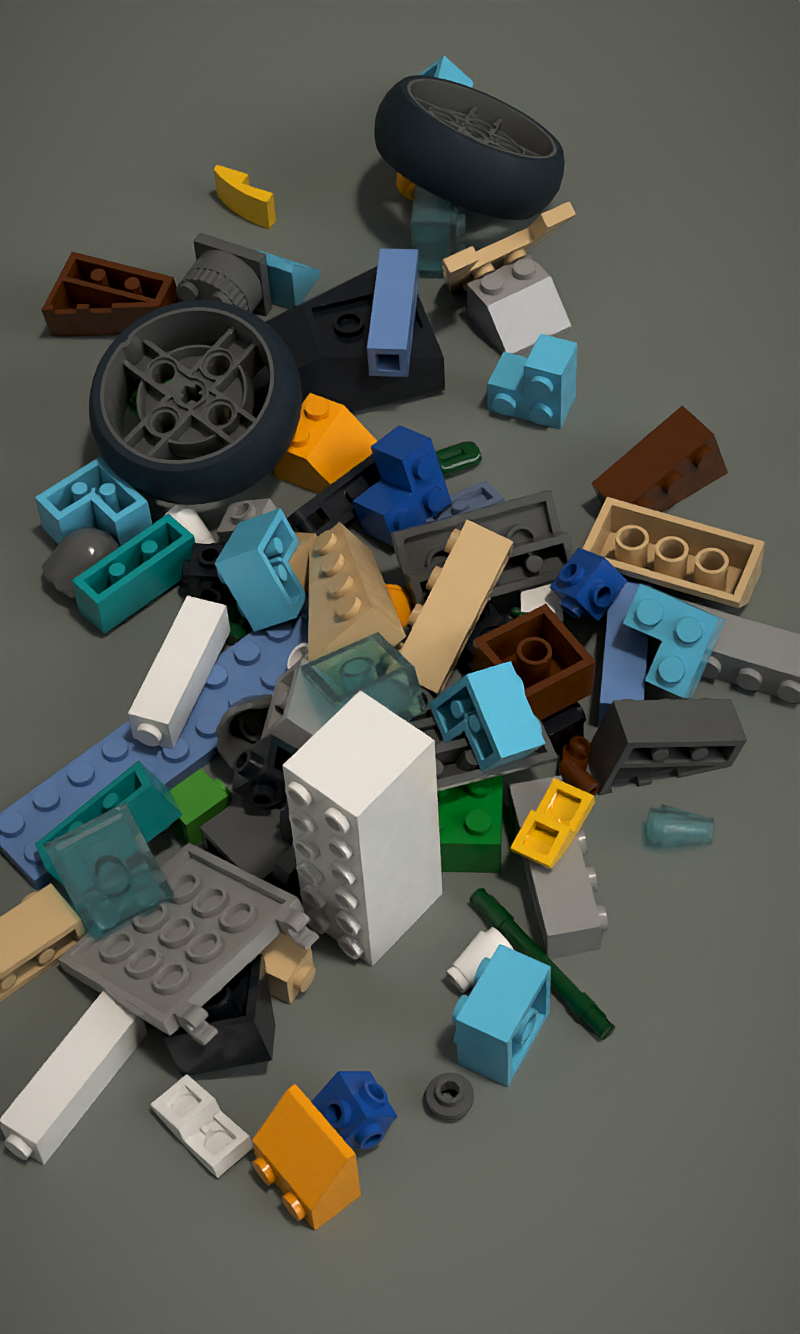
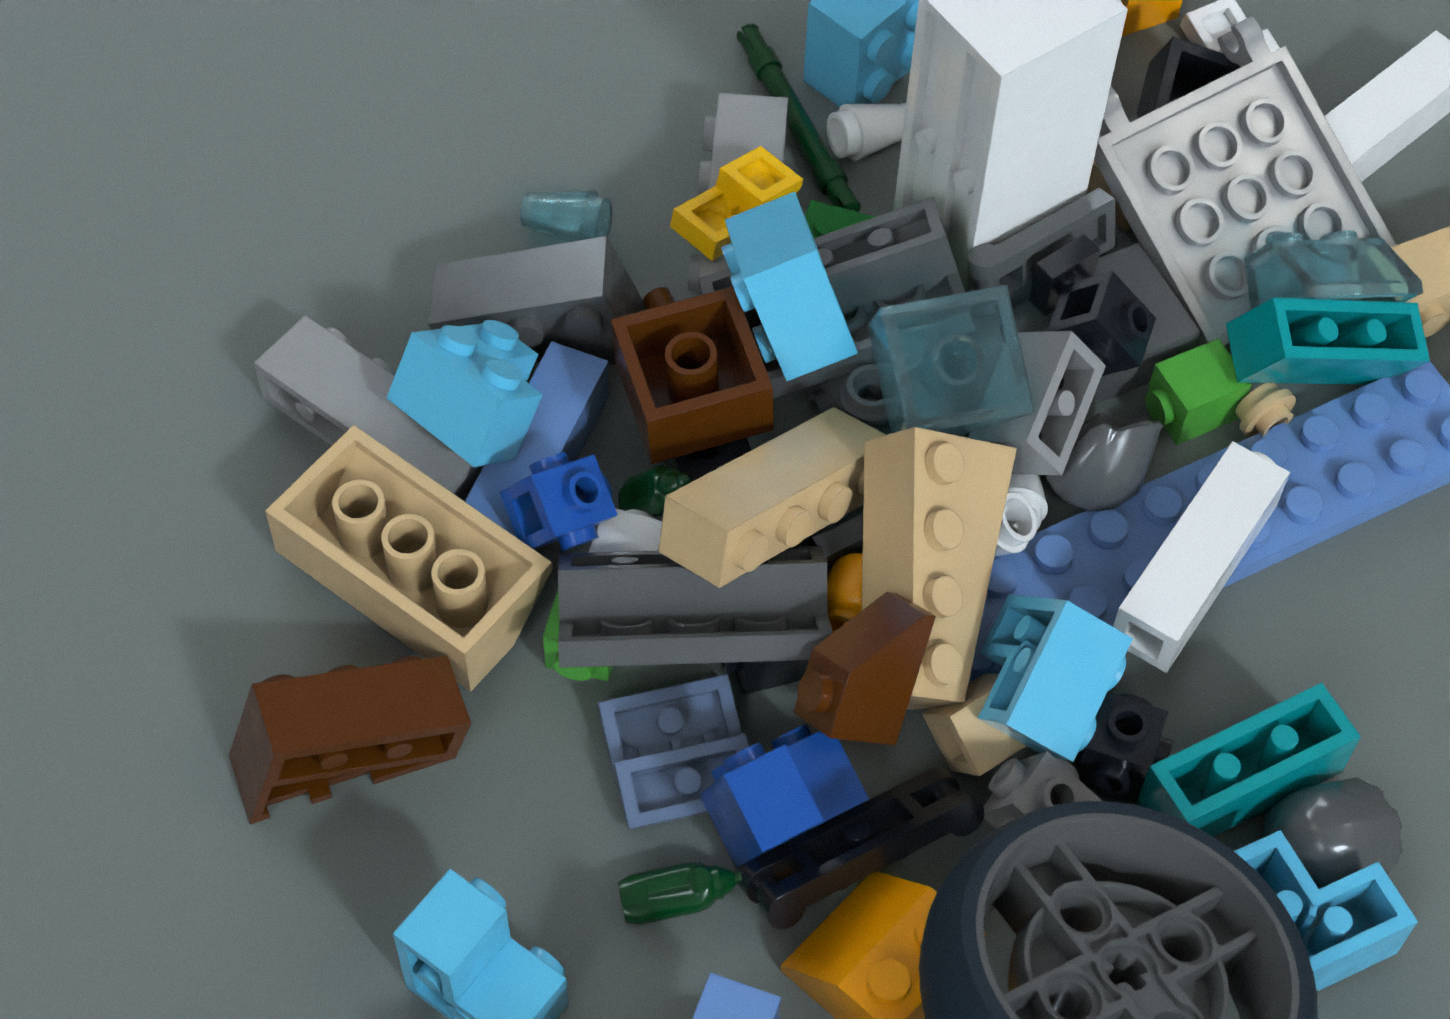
camera: 170 degrees left, 5 degrees up
(371, 521) = (866, 672): none -> reddish brown slope

